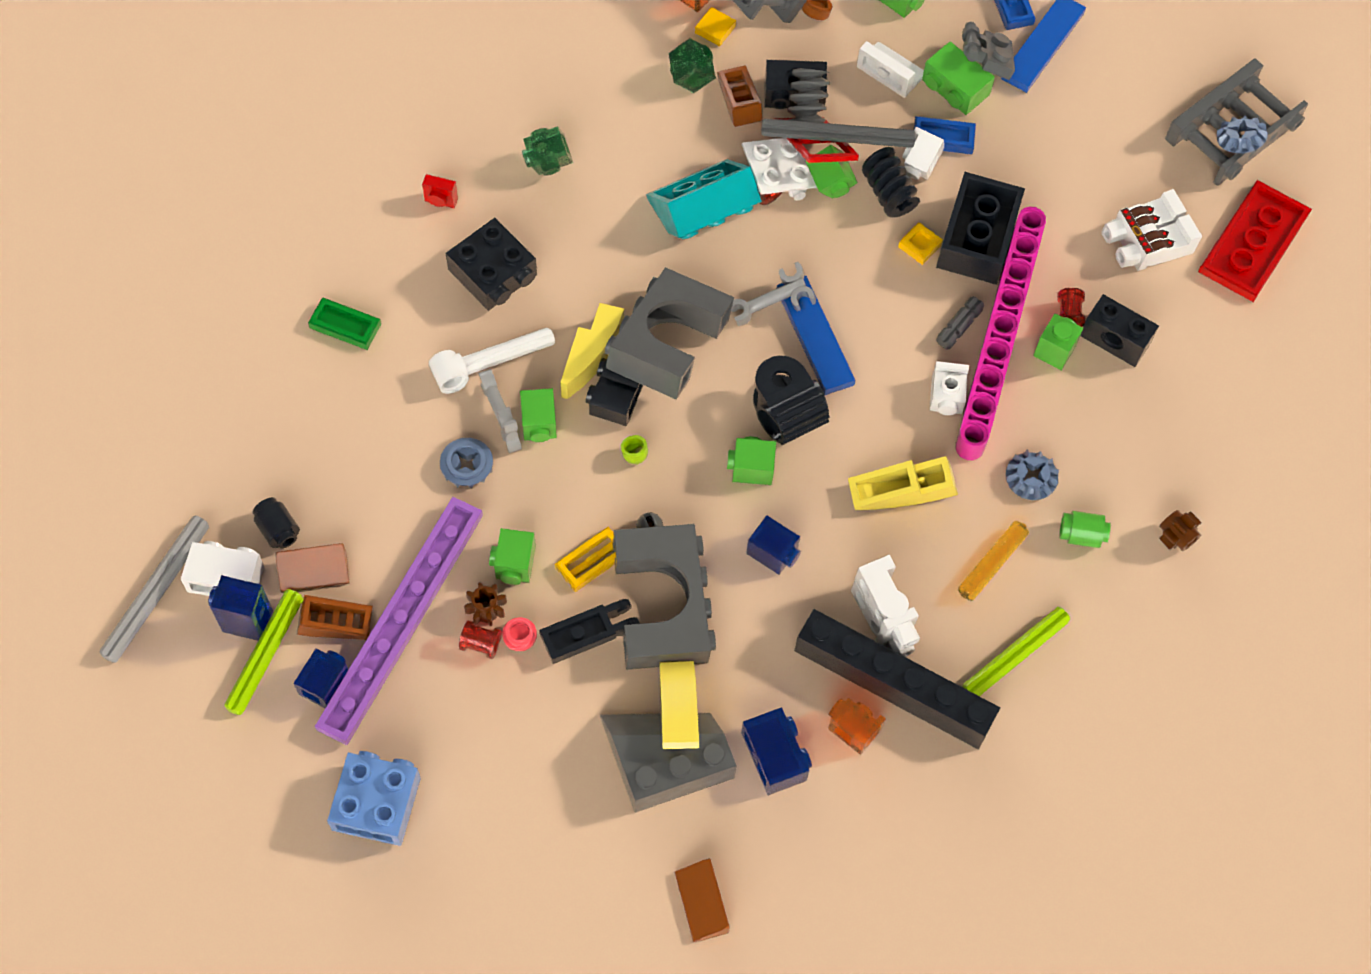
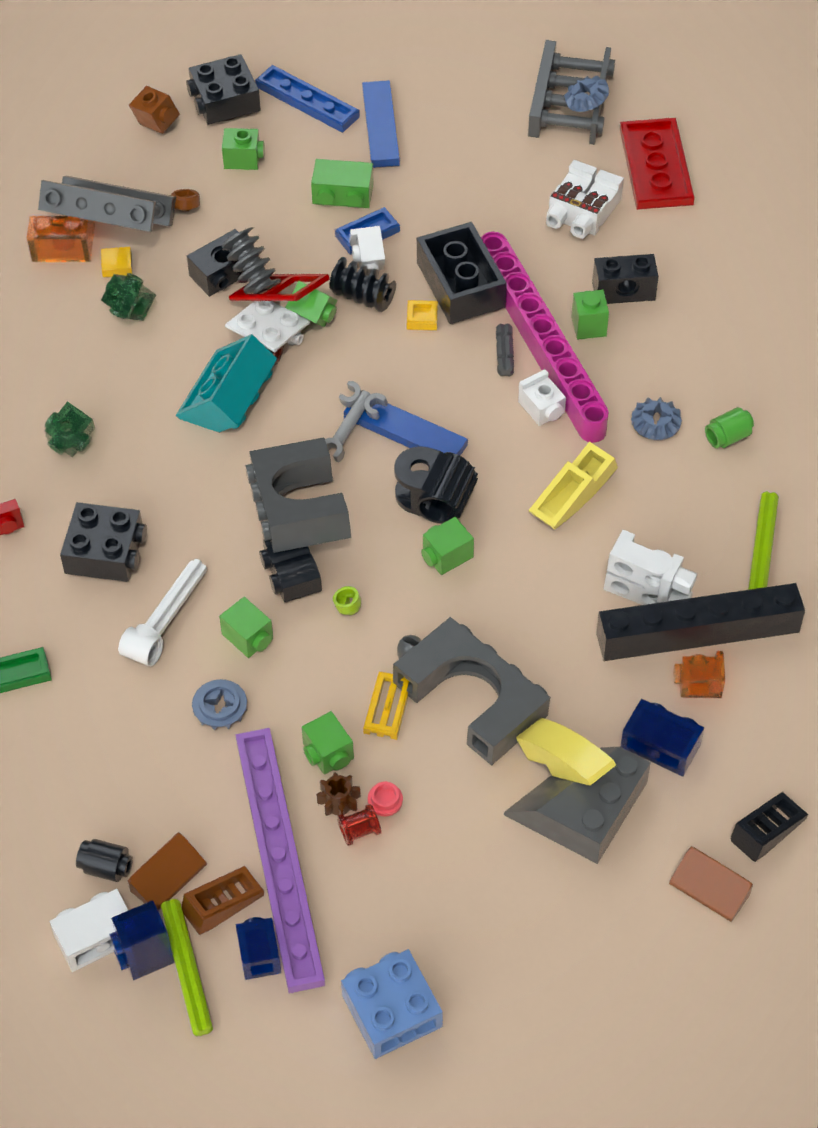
camera: 35 degrees left, 10 degrees down
(153, 590) = (43, 989): light grey axle -> none
(503, 413) = (224, 645): light grey bar -> none
(585, 630) = (435, 759): black hinge -> none
(590, 349) = (241, 549): light yellow slope -> none
(740, 97) = (185, 299): dark orange slope -> none
(774, 545) = (521, 594): clear blue brick -> none
(780, 902) = (753, 840): none -> black slope
(838, 133) = (295, 269): dark grey axle -> none
(889, 68) = (282, 210): white panel -> none
(990, 49) = (350, 147): dark grey plate -> none
(993, 560) = (686, 495): clear yellow axle -> none
(1071, 304) = (572, 282): clear red bush -> none
(1180, 530) = (795, 383): reddish brown gear -> none

